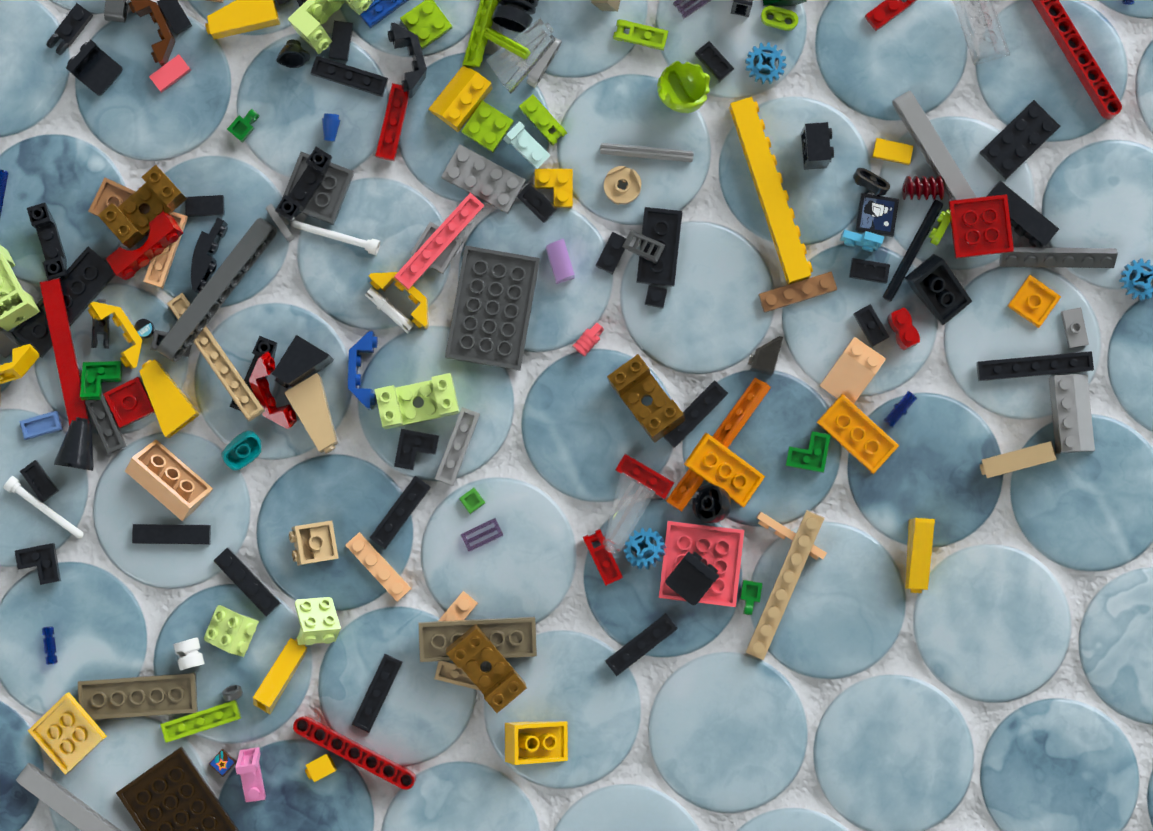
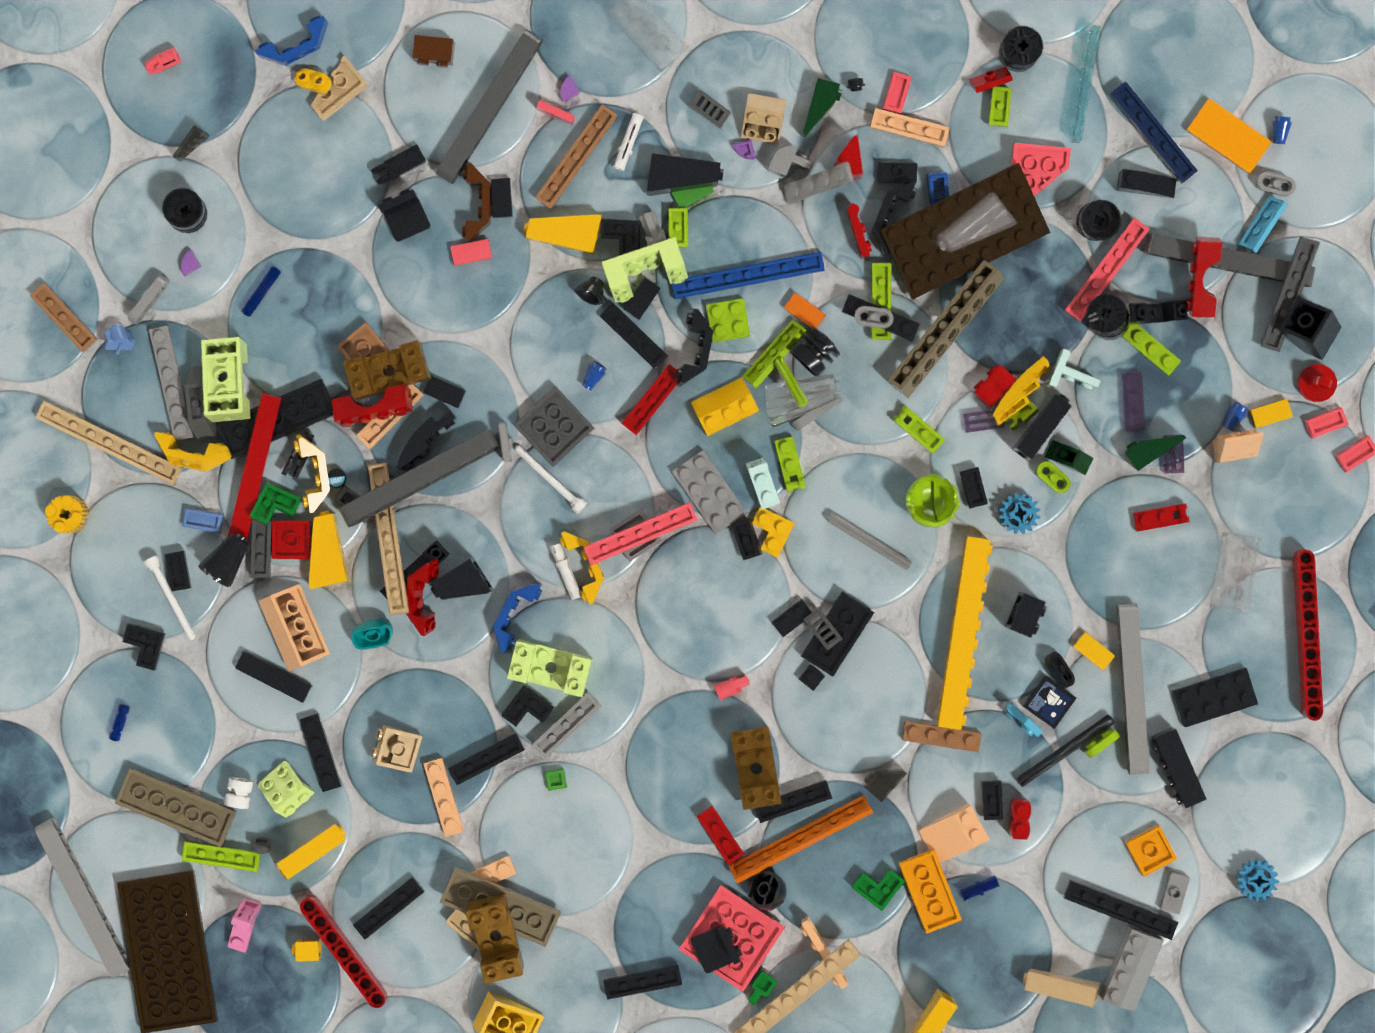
camera: 30 degrees right, 5 degrees up
(55, 259) = (288, 358): black slope -> none
(67, 733) = (98, 810): yellow plate -> none
(222, 762) = (223, 901): tile -> none
(242, 127) = (513, 336): green plate -> none
(303, 191) = (543, 422): black slope -> none
(313, 410) = (452, 627): tan slope -> none
(317, 621) = (366, 820): yellowish green bracket -> none
(487, 126) = (736, 445): lime plate -> none
(492, 308) = (659, 615): dark grey plate -> none
(497, 527) = (549, 806): clear purple tile -> none
(560, 261) = (741, 603): lavender brick -> none
(602, 558) = (647, 889): red plate -> none
(625, 175) = (840, 568): tan plate -> none
(627, 508) = (688, 859): clear slope -> none
(645, 550) = (693, 894): dark azure gear -> none
(724, 469) = (794, 866): light orange tile -> none
(869, 270) = (1016, 750): black plate -> none
(923, 187) = (1103, 698): dark red piece -> none
(938, 288) = (1069, 797): black slope -> none
(981, 226) = (1136, 763): red plate -> none
(1059, 257) = (1192, 823): dark grey plate -> none

